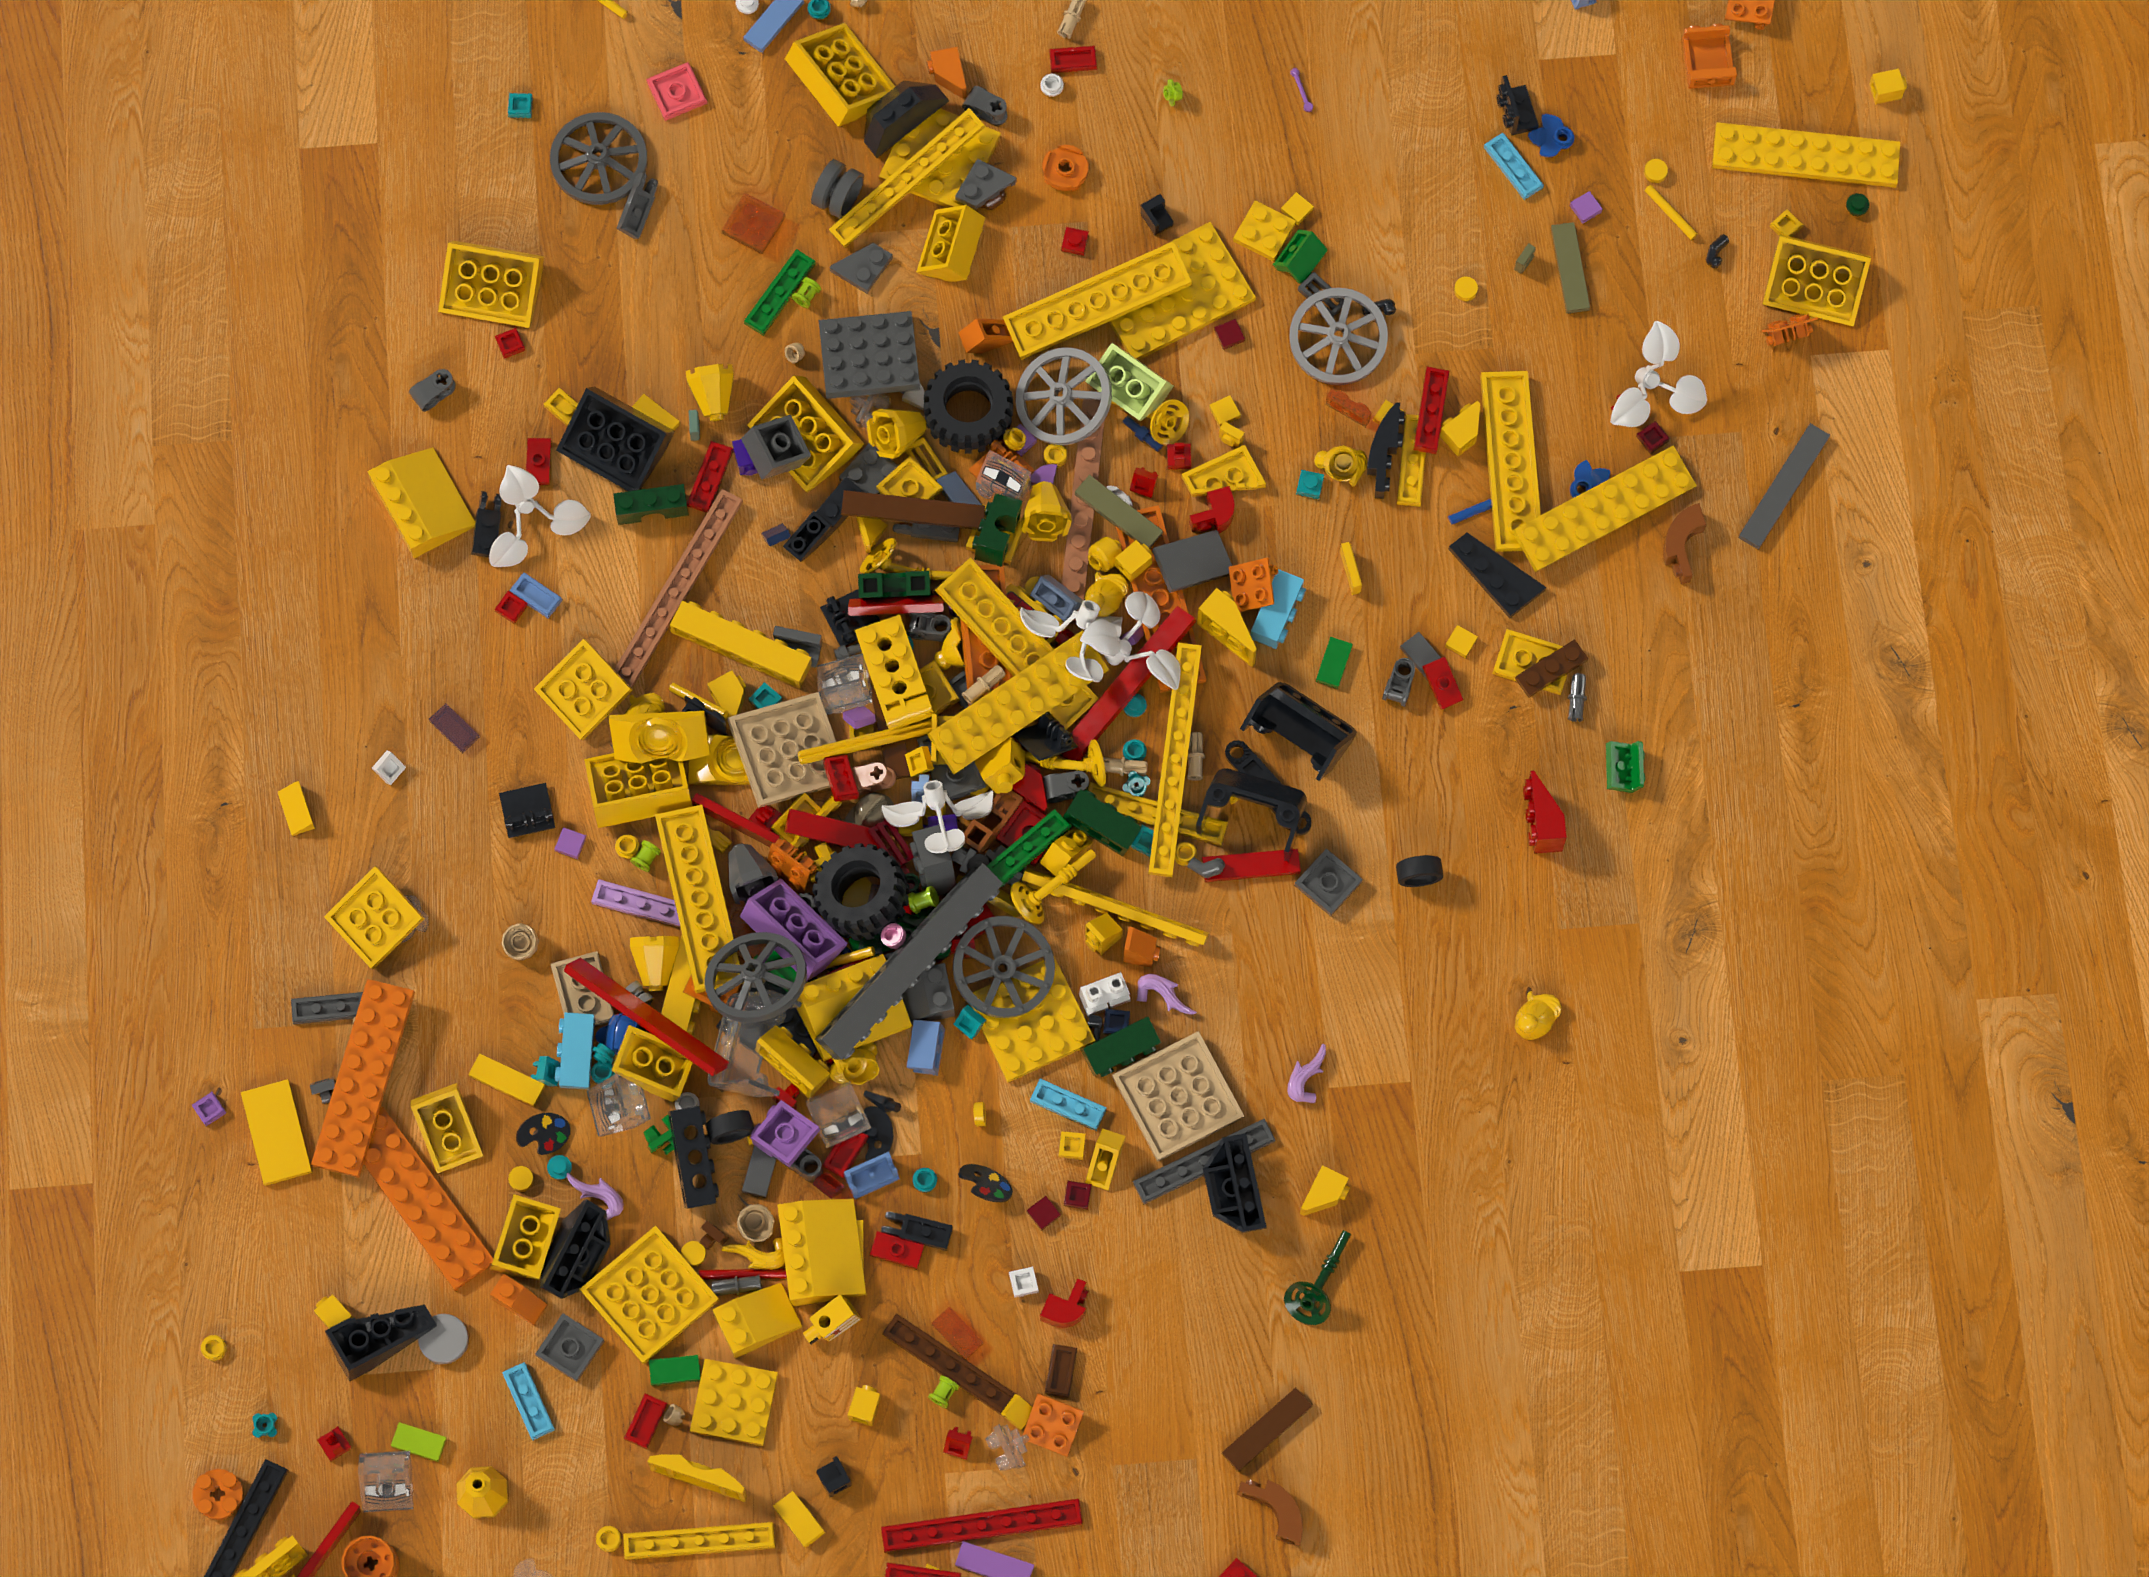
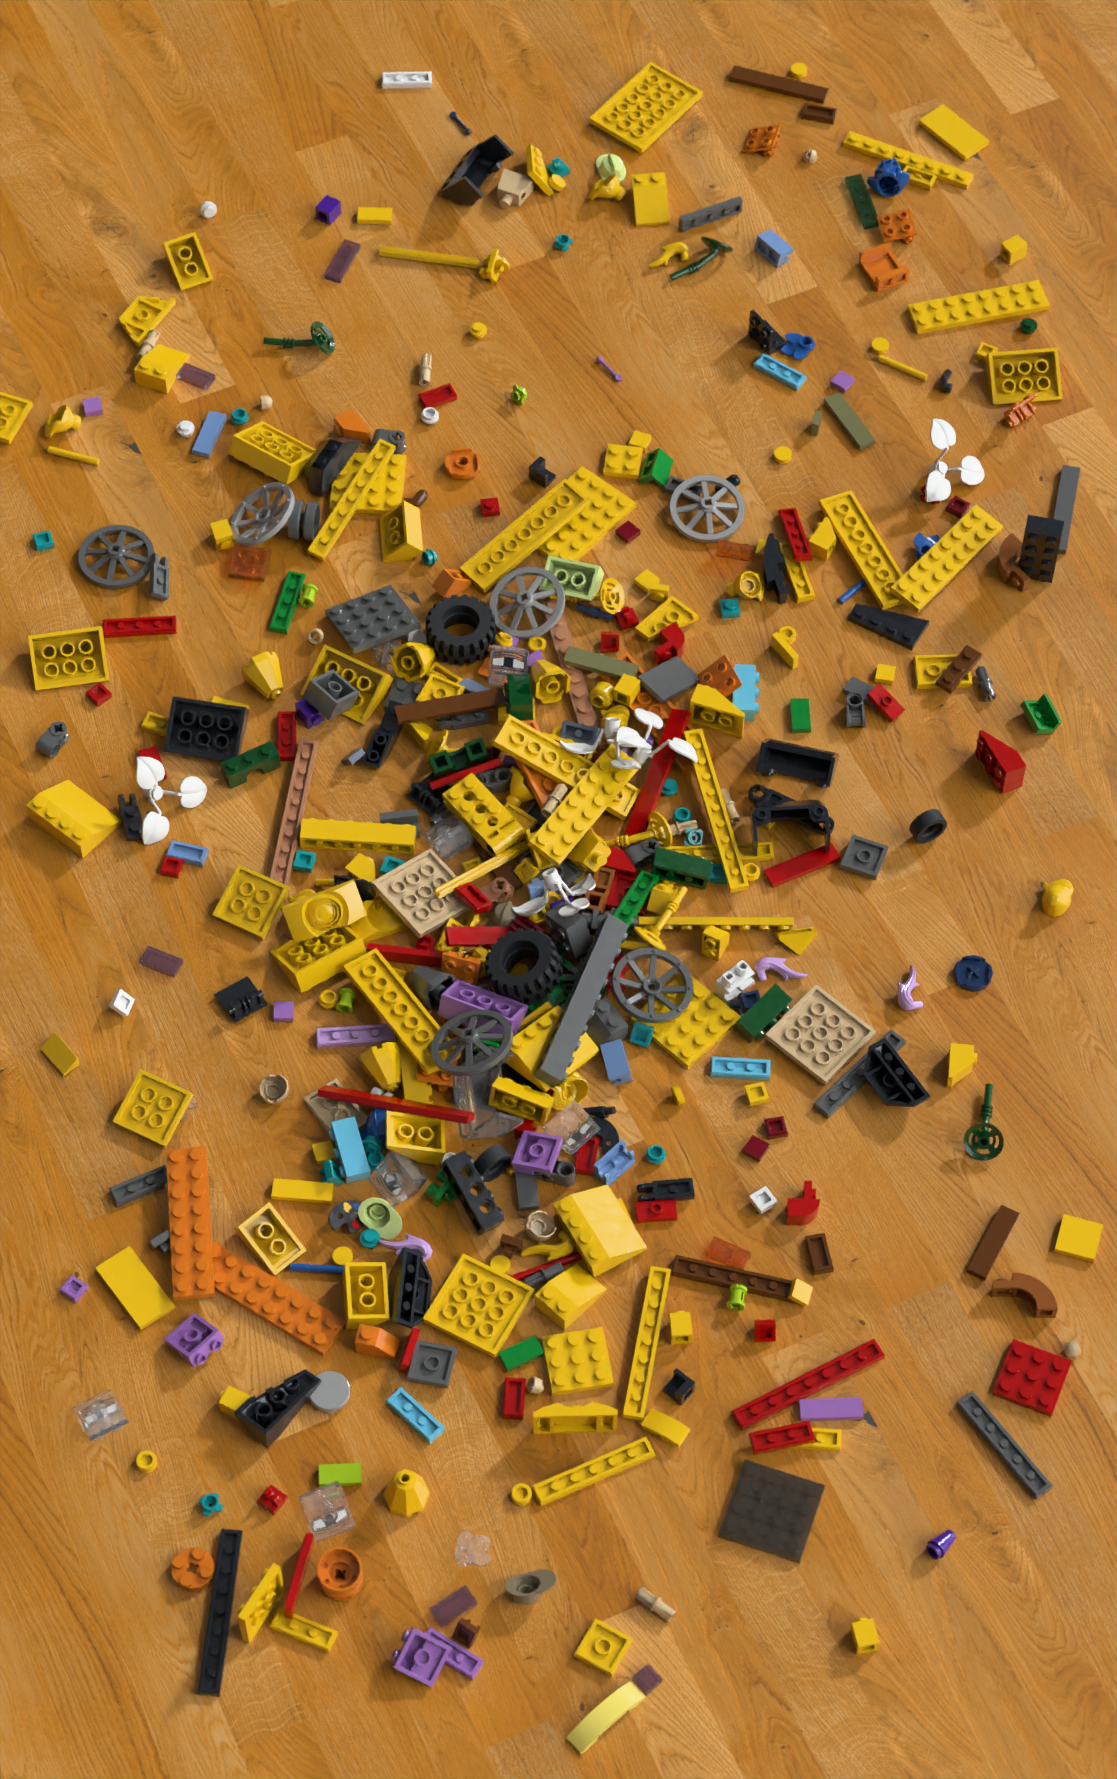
camera: 20 degrees left, 15 degrees down
(182, 1275) = (100, 1415): none -> clear slope
(317, 1222) = (195, 1340): none -> medium lavender plate
(488, 1182) = (316, 1268): none -> blue bar
(548, 1039) = (323, 1151): none -> yellow tile
(549, 1321) = (408, 1351): none -> red tile
(579, 1146) = (380, 1216): none -> yellowish green piece
(591, 265) = (139, 626): none -> red tile
(667, 655) = (304, 861): none -> teal plate
(676, 91) = (156, 498): coral tile -> none
(694, 425) = (261, 704): sand green tile -> none
(734, 172) = (222, 534): none -> yellow brick
(791, 167) = (265, 516): none -> light grey wheel
(819, 1410) = (646, 1343): none -> yellow plate
(828, 1185) = (584, 1181): clear red tile -> none
(841, 1317) = (630, 1272): yellow torso -> none
(859, 717) = (468, 856): medium lavender tile -> none
(863, 266) = (342, 568): dark grey wing -> none
(893, 936) = (562, 987): bright pink tile -> none
(923, 899) = (572, 957): lime bush -> none
(973, 288) = (429, 557): none -> teal plate
(982, 184) = (409, 487): dark grey wing -> none
(989, 1186) = (704, 1140): black piece -> none
(1012, 1444) = (796, 1314): clear hips -> none
(1046, 738) = (615, 823): black hinge -> none
(1053, 1424) = (830, 1292): orange hinge -> none
(1105, 1159) = (786, 1094): yellow slope -> none
(1140, 948) = (747, 942): orange slope -> none
(1204, 960) = (797, 938): none -> yellow slope
(1207, 869) = (772, 875): dark grey arm -> none
(1364, 546) = (788, 634): none -> yellow tile
(1368, 1460) = (1078, 1238): none -> yellow tile
(1393, 1079) = (973, 973): none -> dark blue tile
(1717, 544) = (1040, 547): none -> black brick

